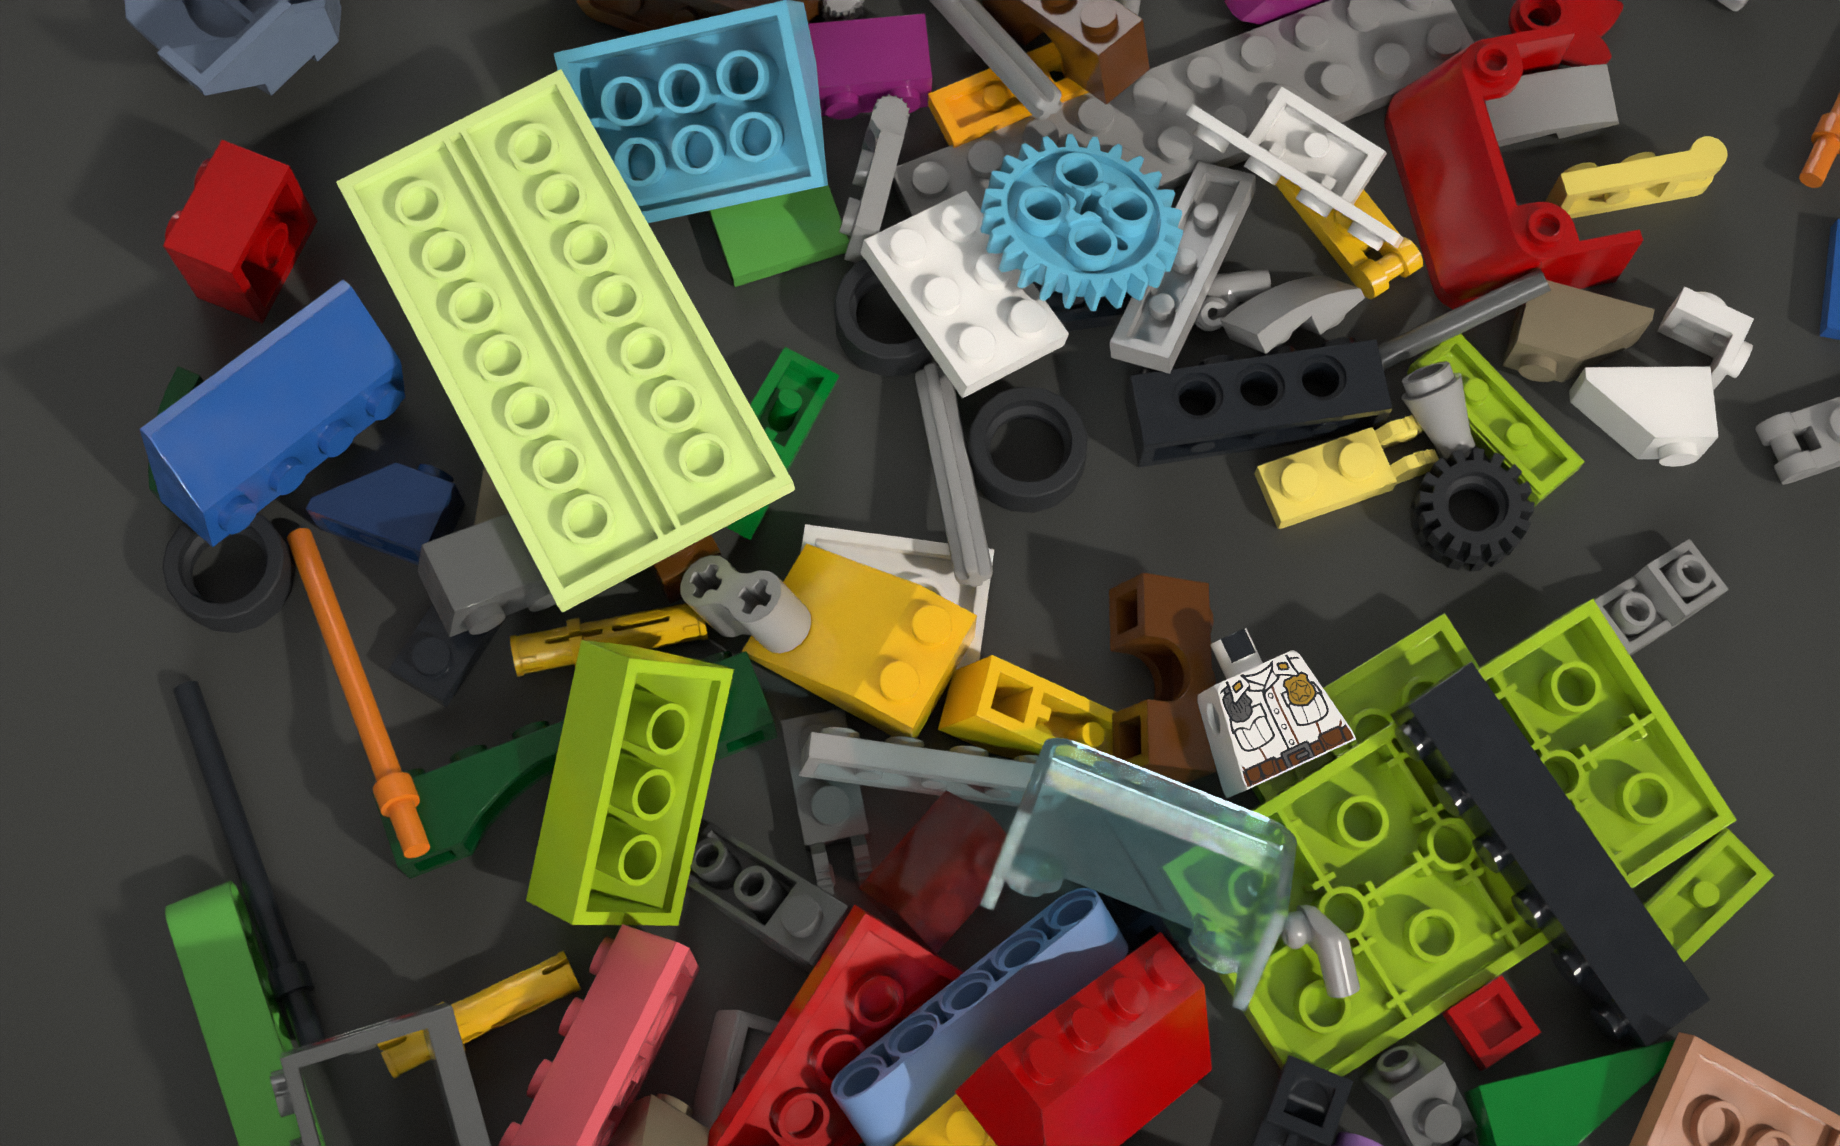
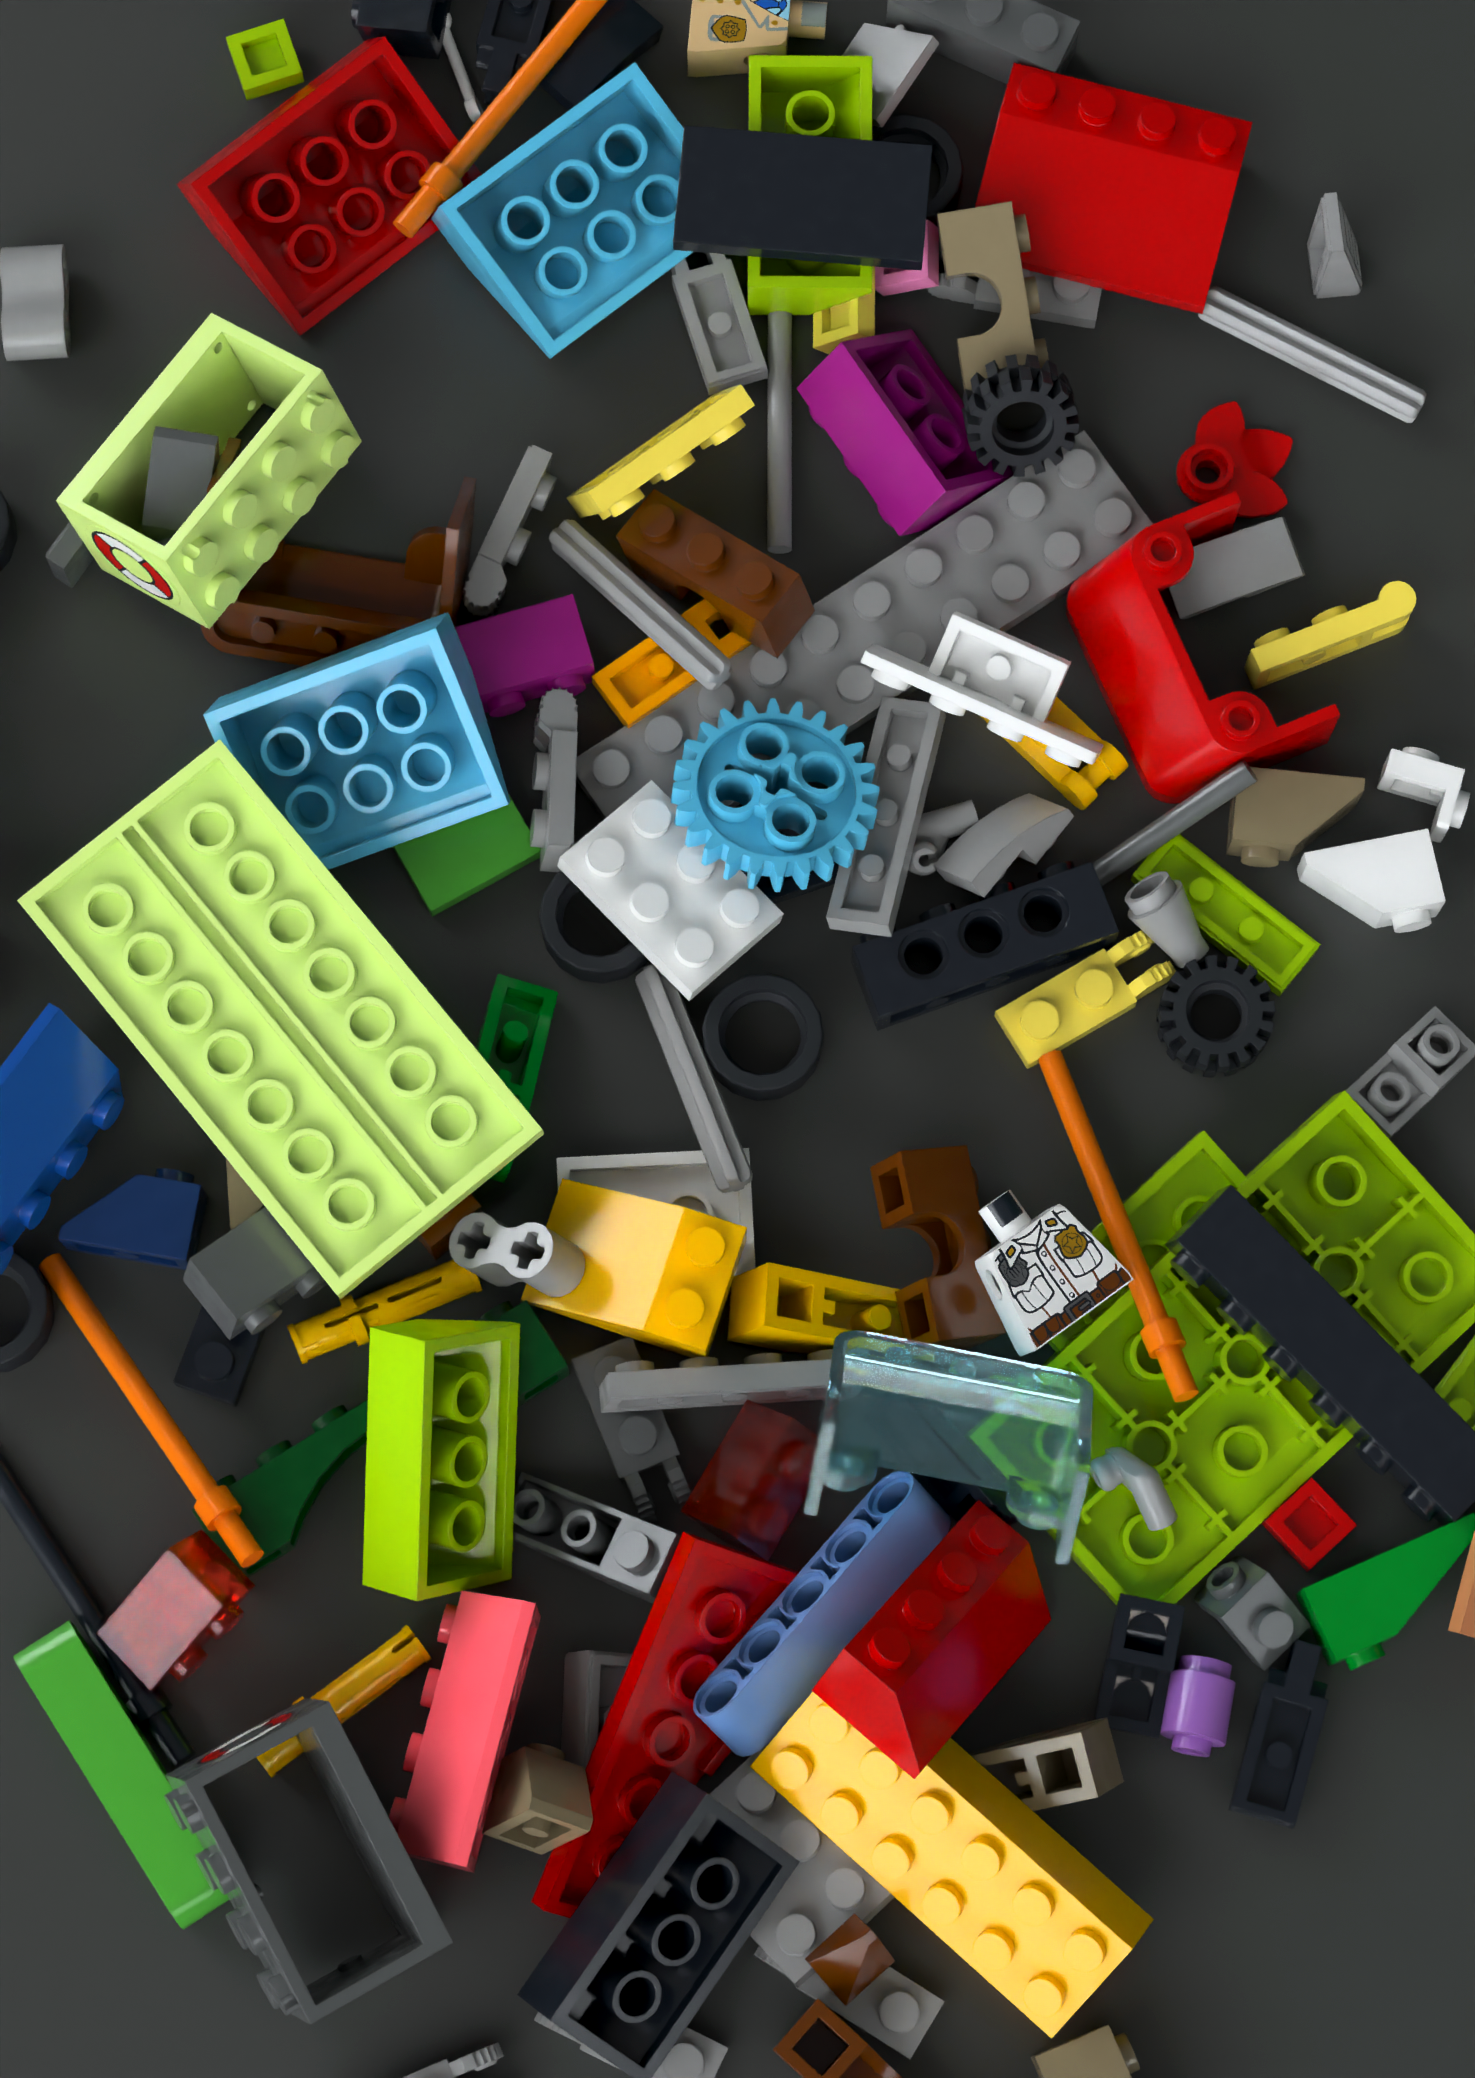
camera: 10 degrees left, 5 degrees up
(334, 890) = (176, 1610): none -> clear red brick
(1374, 798) = (1160, 1332): none -> orange bar

